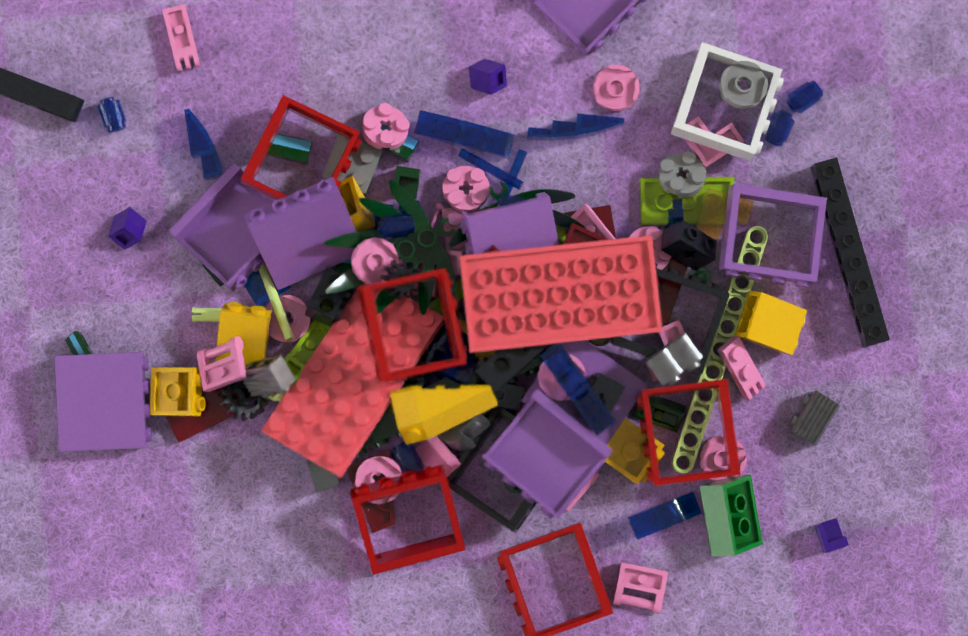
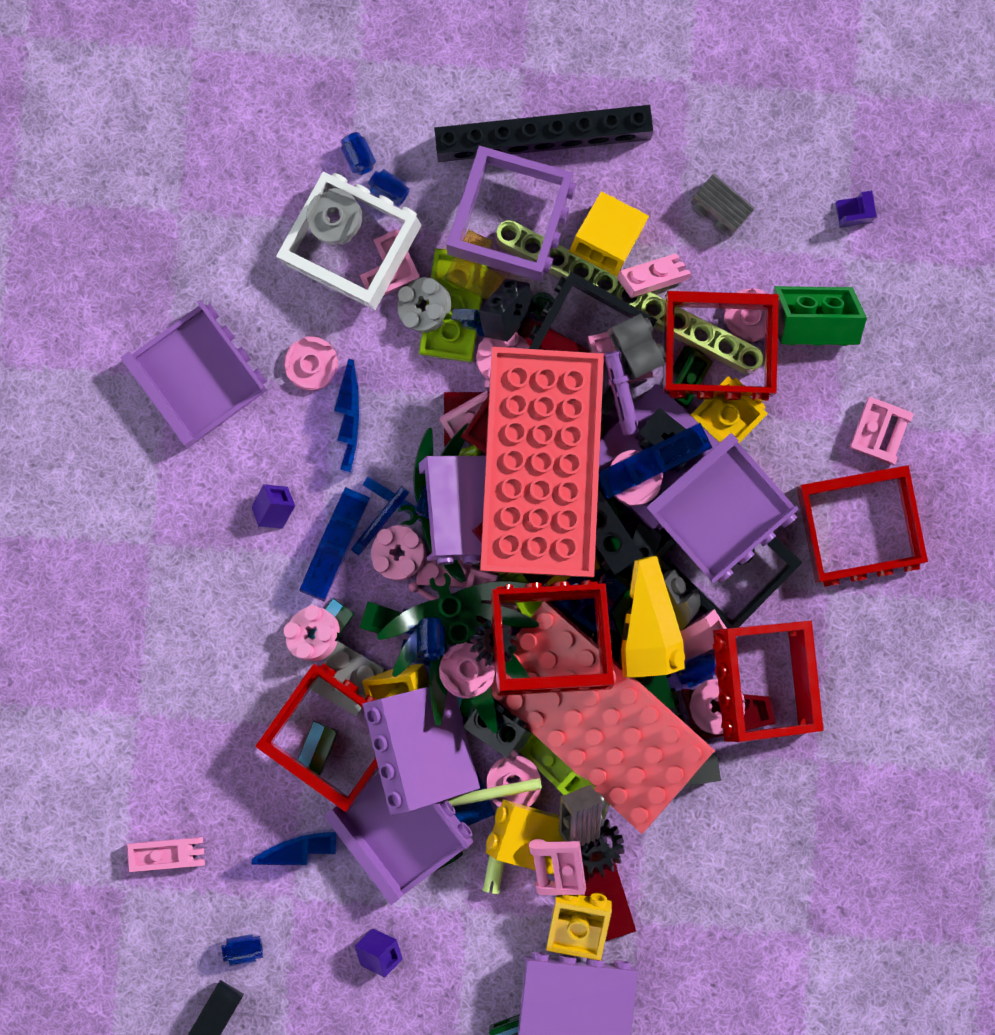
camera: 80 degrees left, 0 degrees up
(640, 349) = (619, 382): none -> medium lavender pin
(664, 515) = (805, 391): clear blue slope -> none

